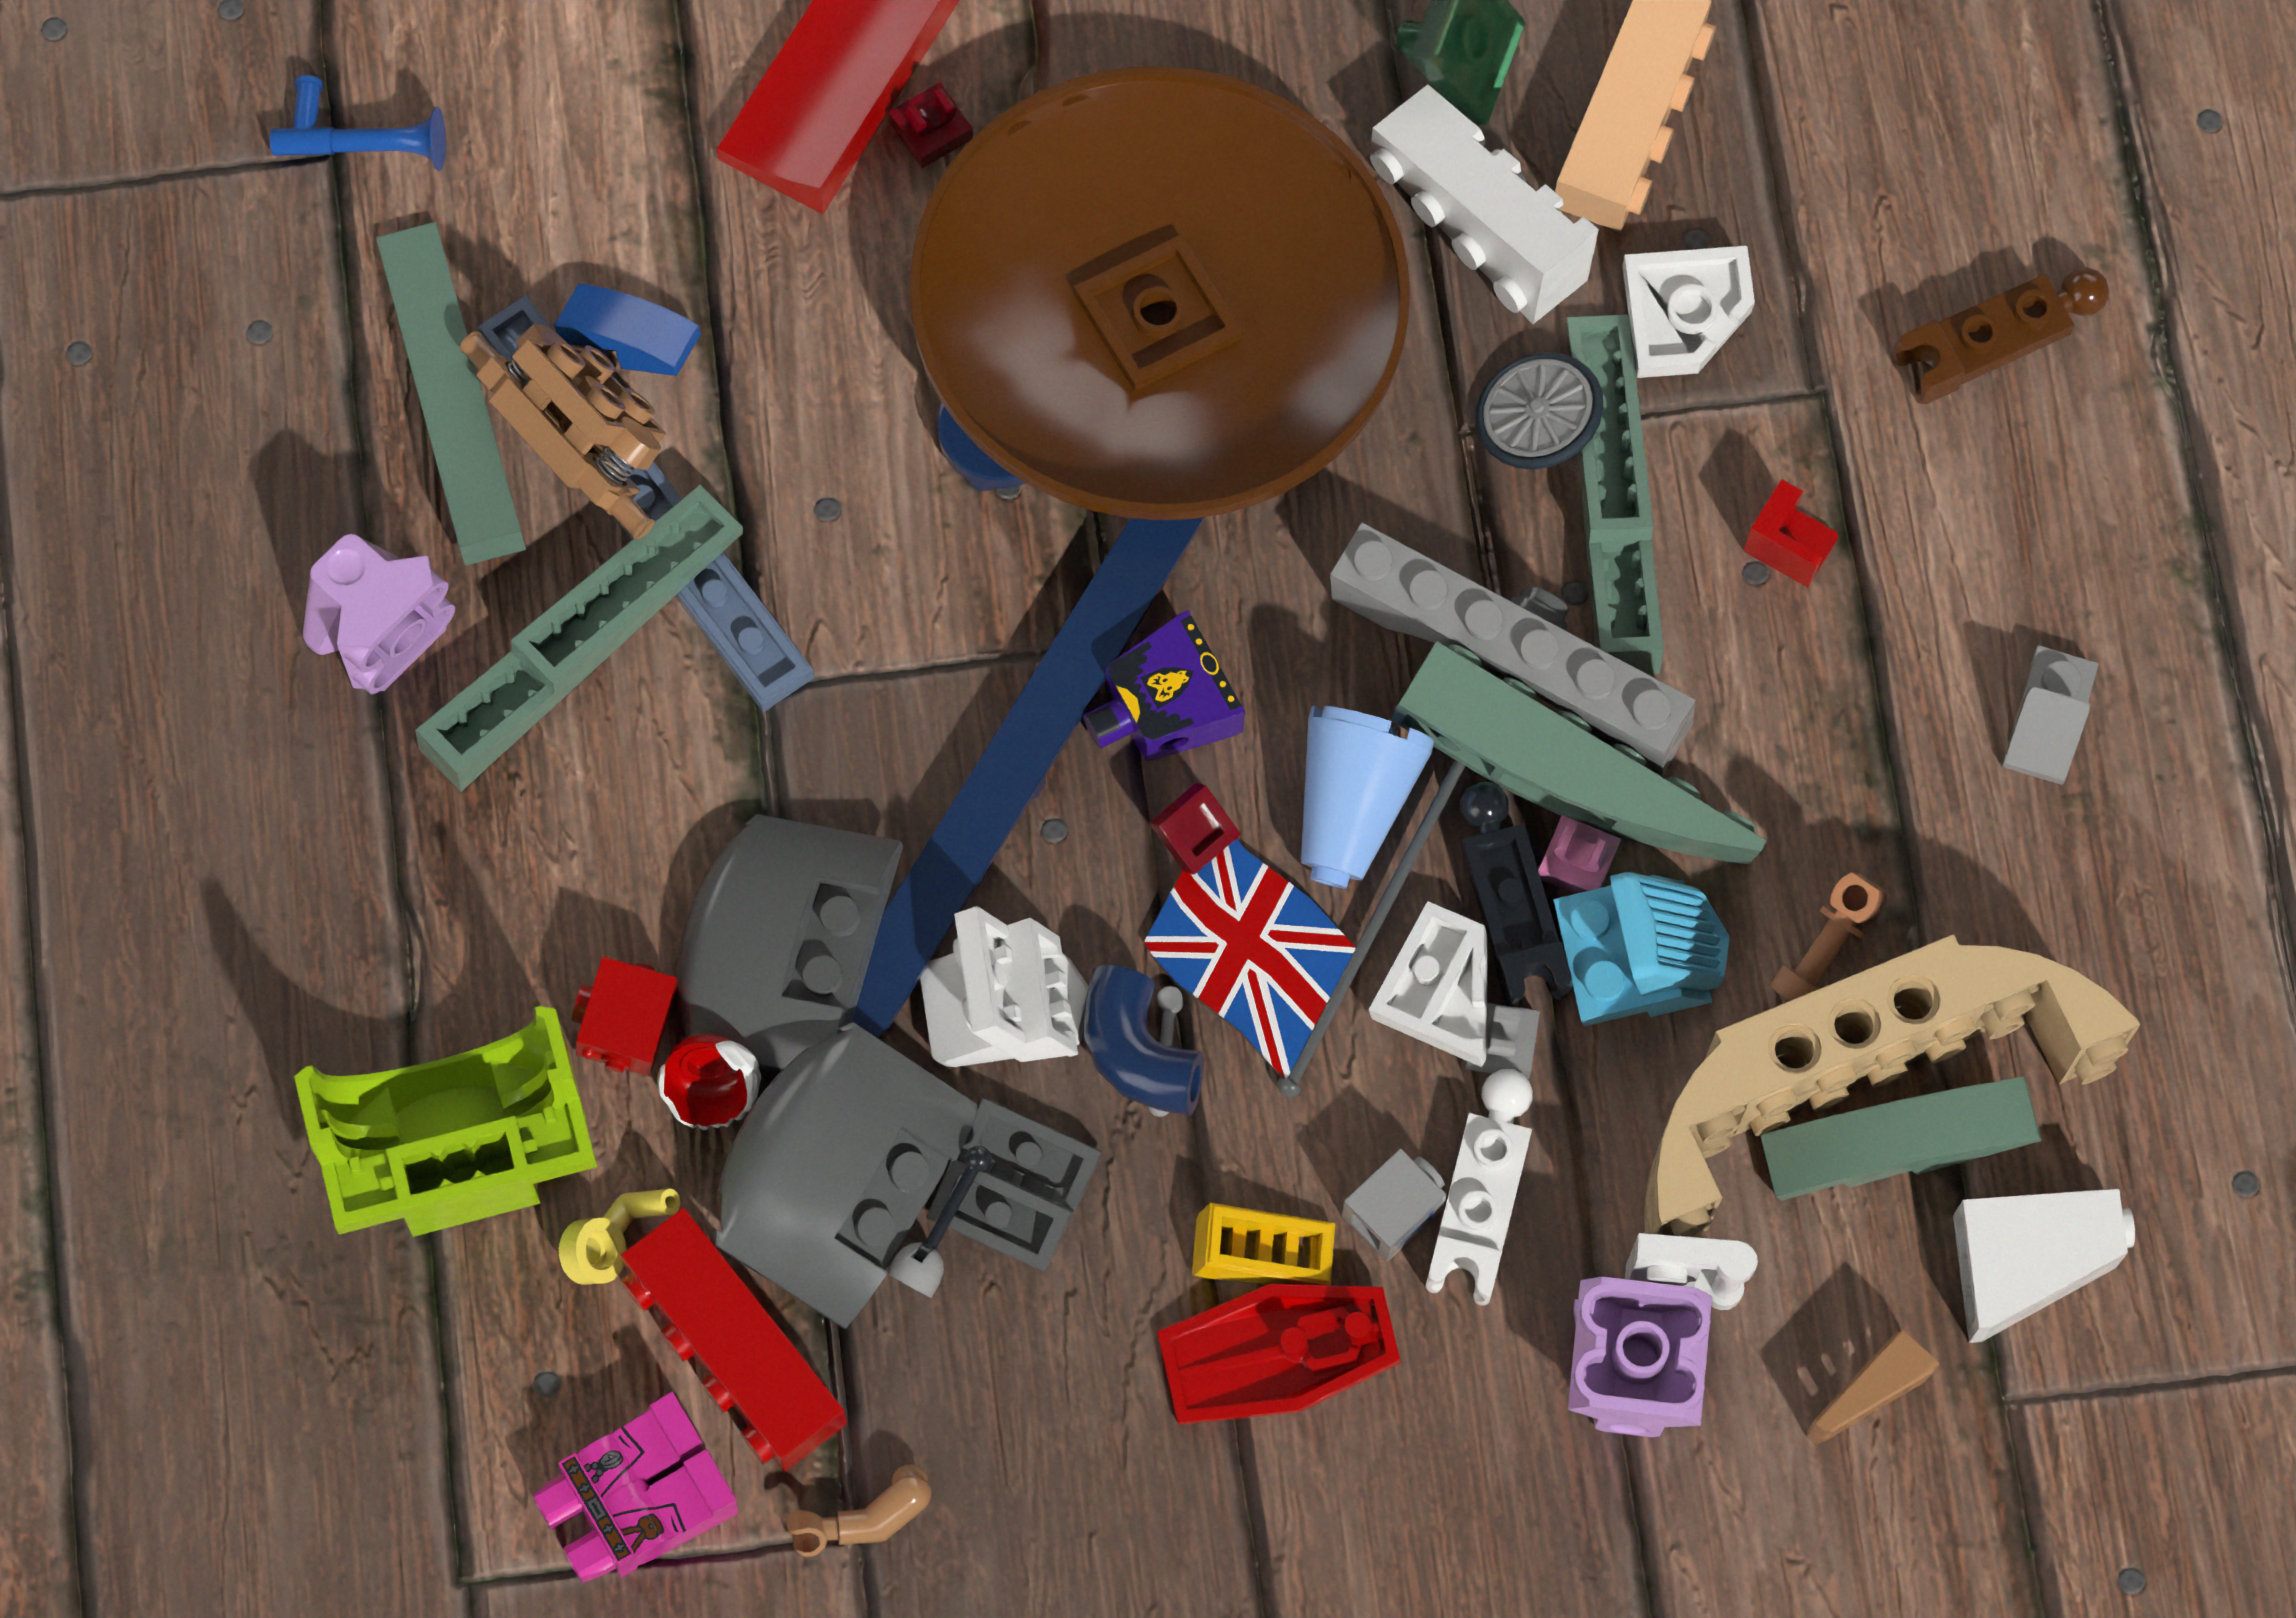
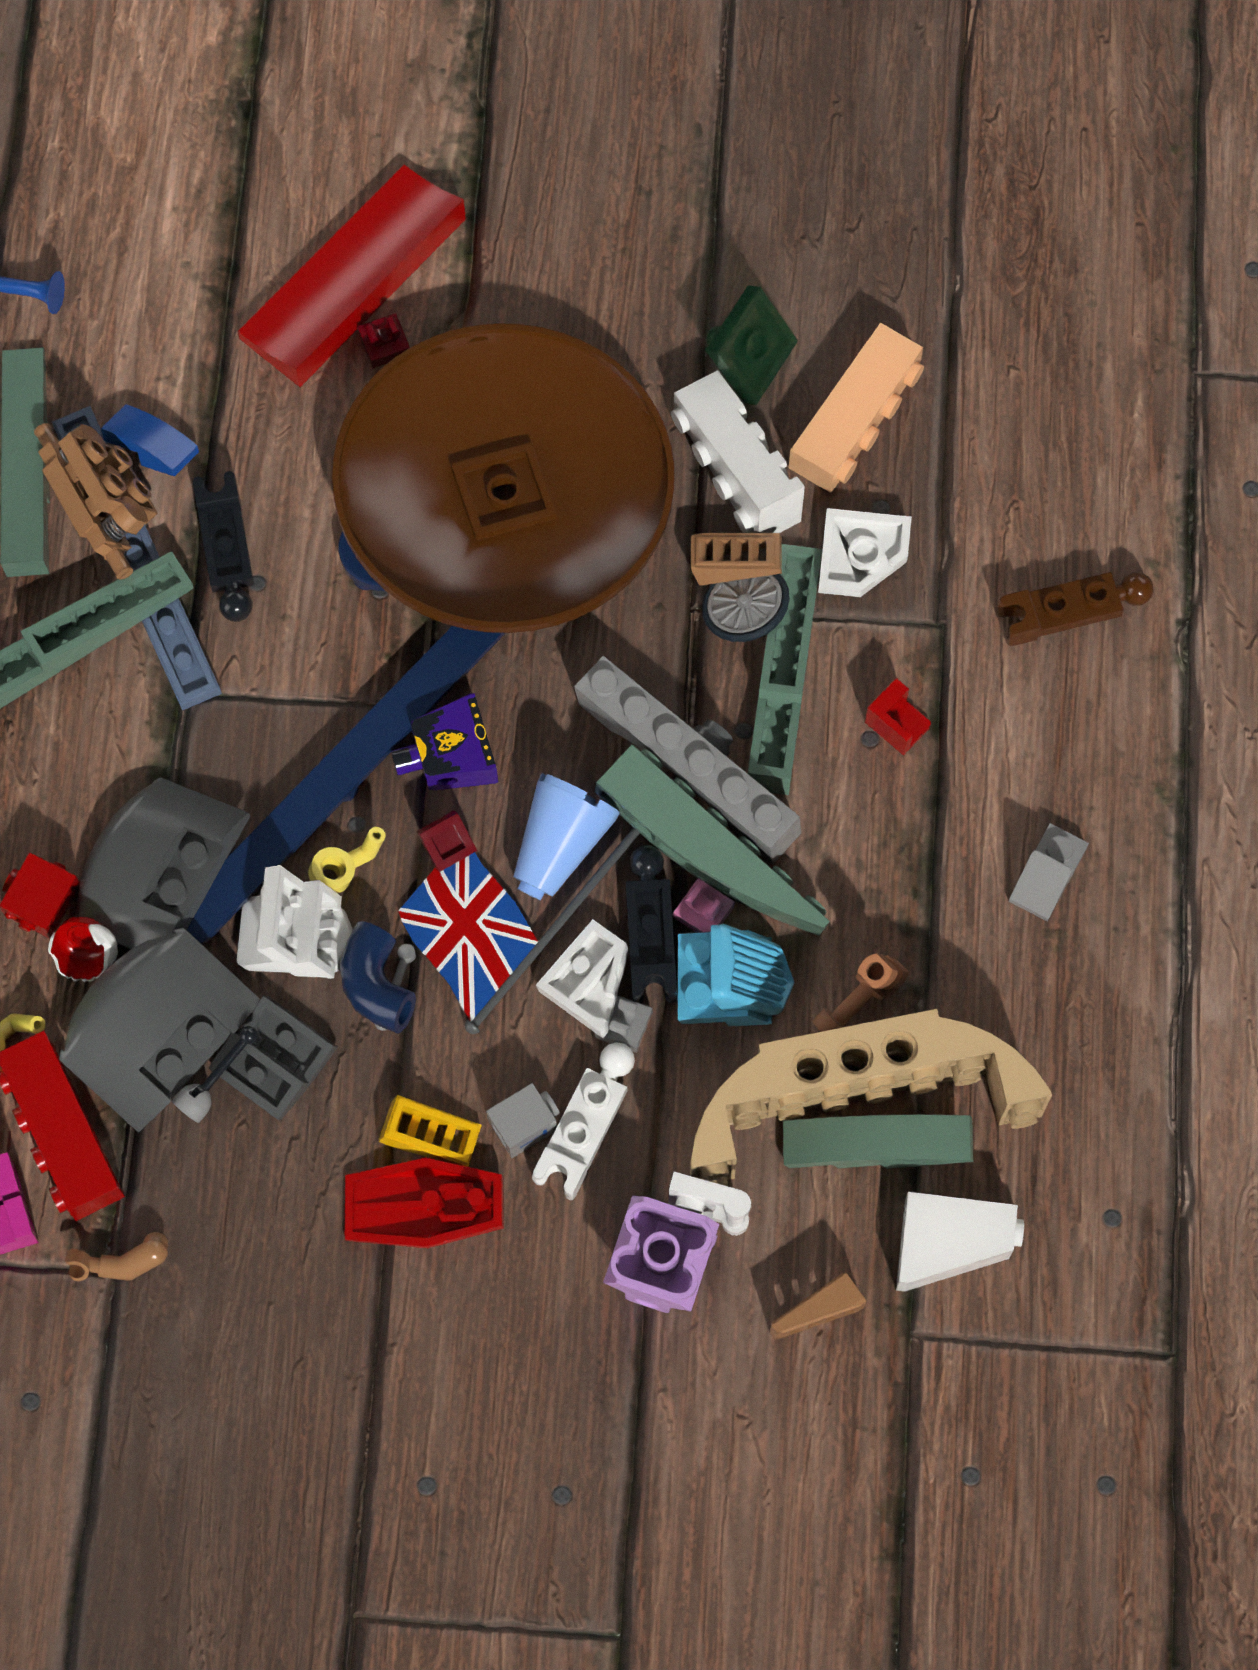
camera: 15 degrees right, 0 degrees up
(773, 463) = (225, 546): none -> black plate
(1053, 888) = (345, 863): none -> light yellow plate
(1487, 332) = (719, 544): none -> medium nougat slope

